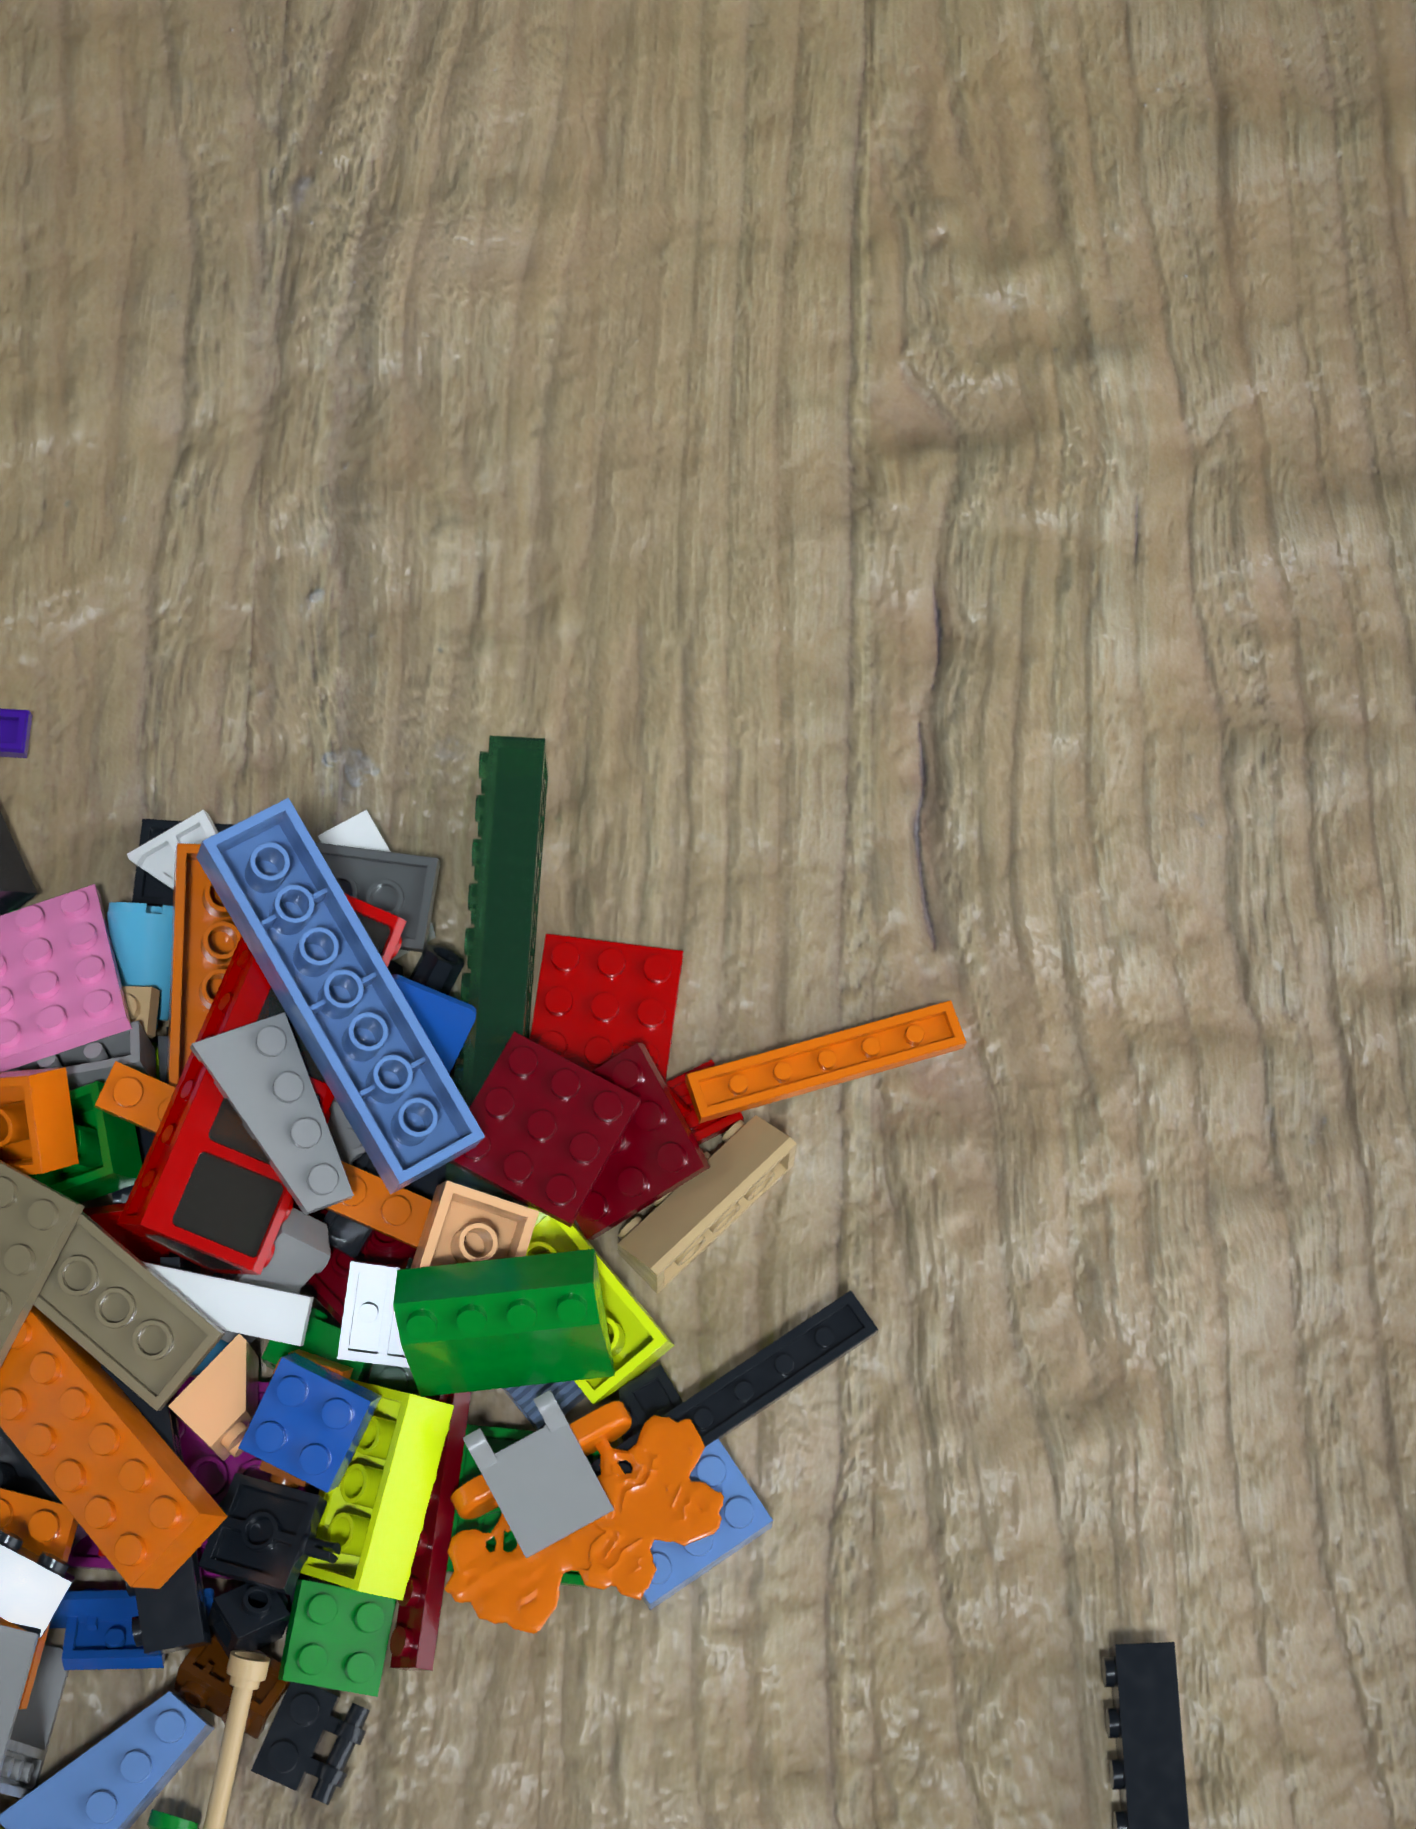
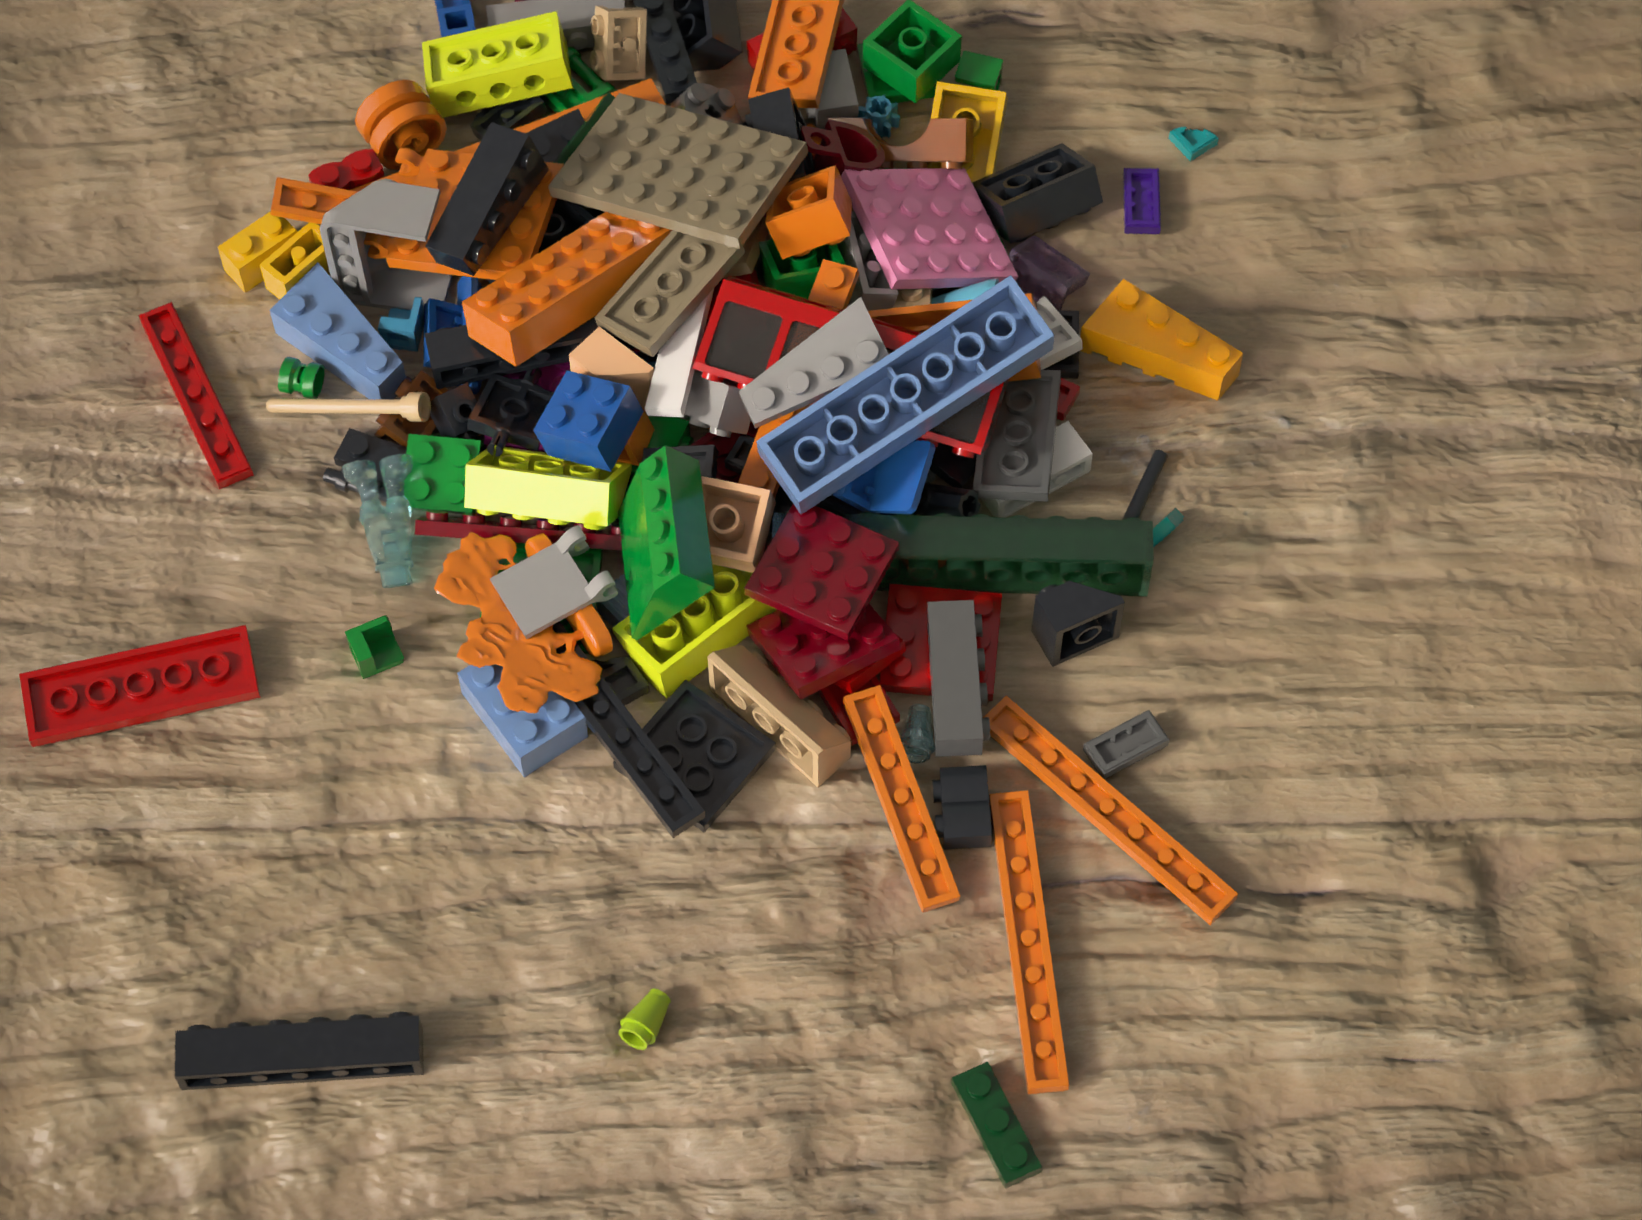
camera: 90 degrees right, 10 degrees down
(83, 852) = (1046, 271): none -> bracket
(90, 1700) = (403, 327): none -> dark azure panel
(201, 723) = (1162, 342): none -> light orange wedge
(412, 1708) = (386, 526): none -> clear light blue piece
(416, 766) = (1146, 484): none -> black bar
(462, 740) = (1166, 526): none -> teal tile
(590, 1723) = (374, 646): none -> green panel
(601, 851) = (1075, 620): none -> black slope
(675, 985) = (955, 678): none -> dark grey brick
(733, 1040) = (918, 734): none -> clear light blue cone
(745, 1296) = (707, 748): none -> black plate
(754, 804) = (1126, 744): none -> dark grey plate
(834, 991) = (964, 807): none -> black brick
(835, 832) = (1110, 811): none -> orange plate
(1001, 928) = (1028, 943): none -> orange plate
(1104, 1372) = (644, 1021): none -> lime cone
(1223, 978) = (996, 1125): none -> dark green plate

